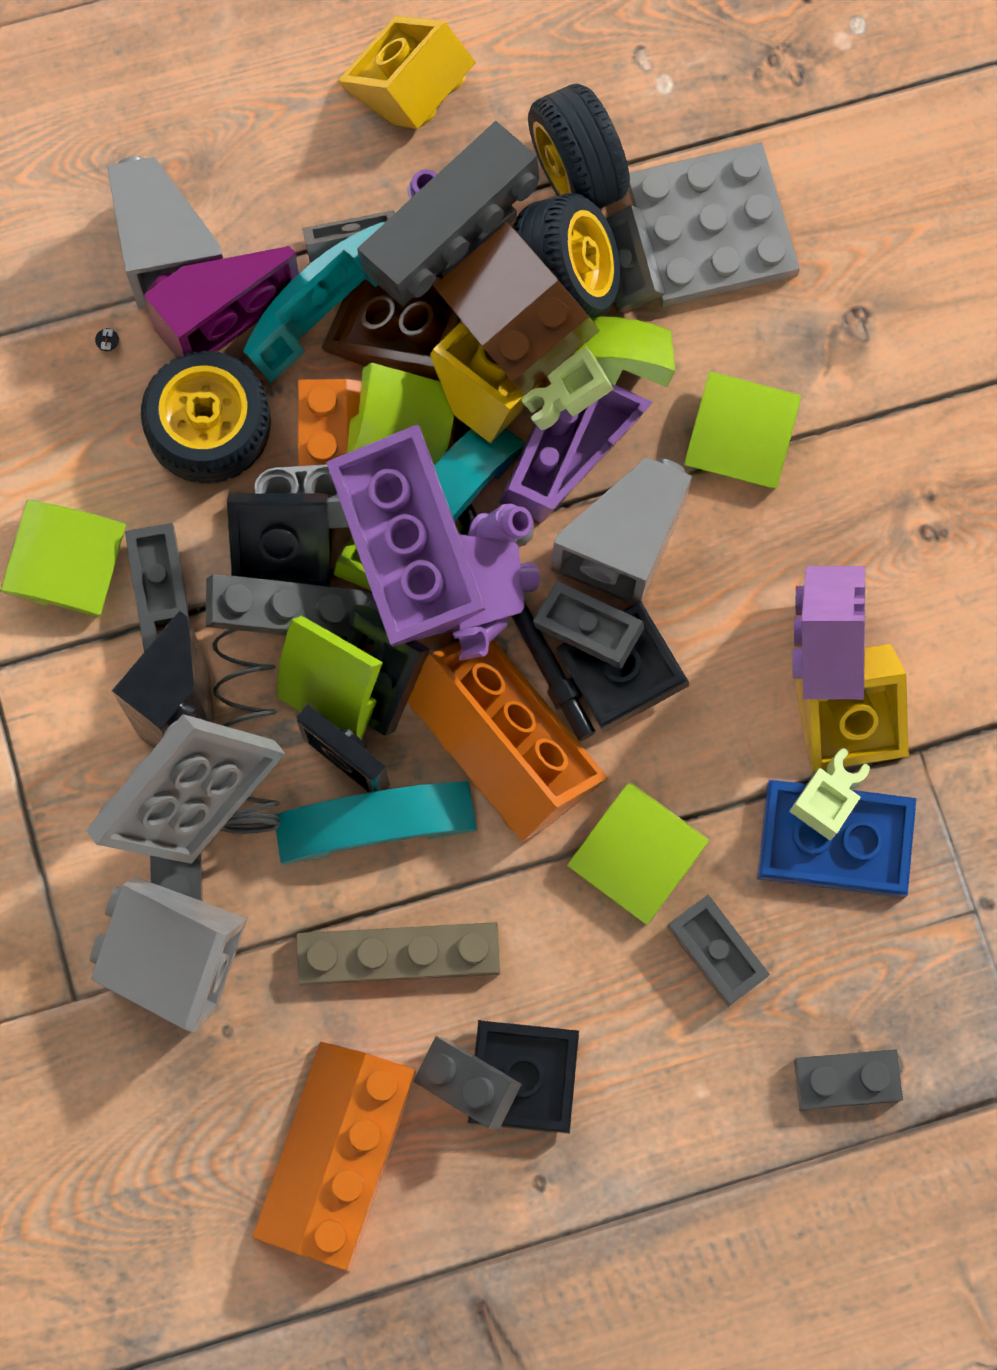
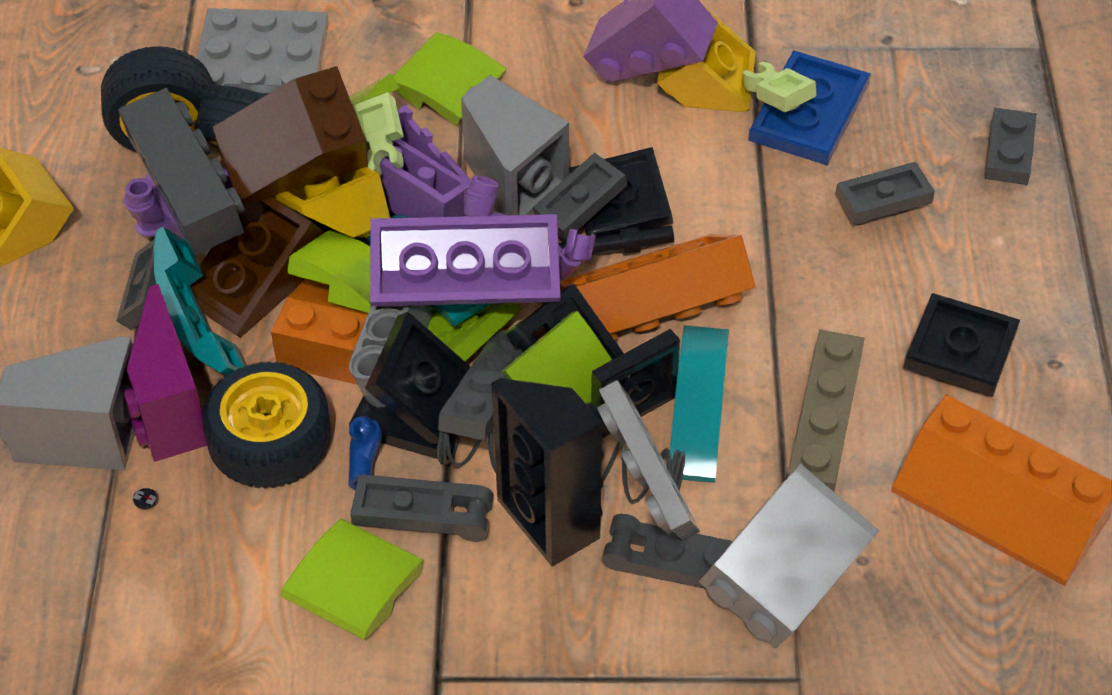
camera: 70 degrees left, 25 degrees down
(201, 519) = (363, 447): none -> blue arm
(467, 1083) = (963, 368): dark grey plate -> none
(638, 853) = (786, 224): lime slope -> none

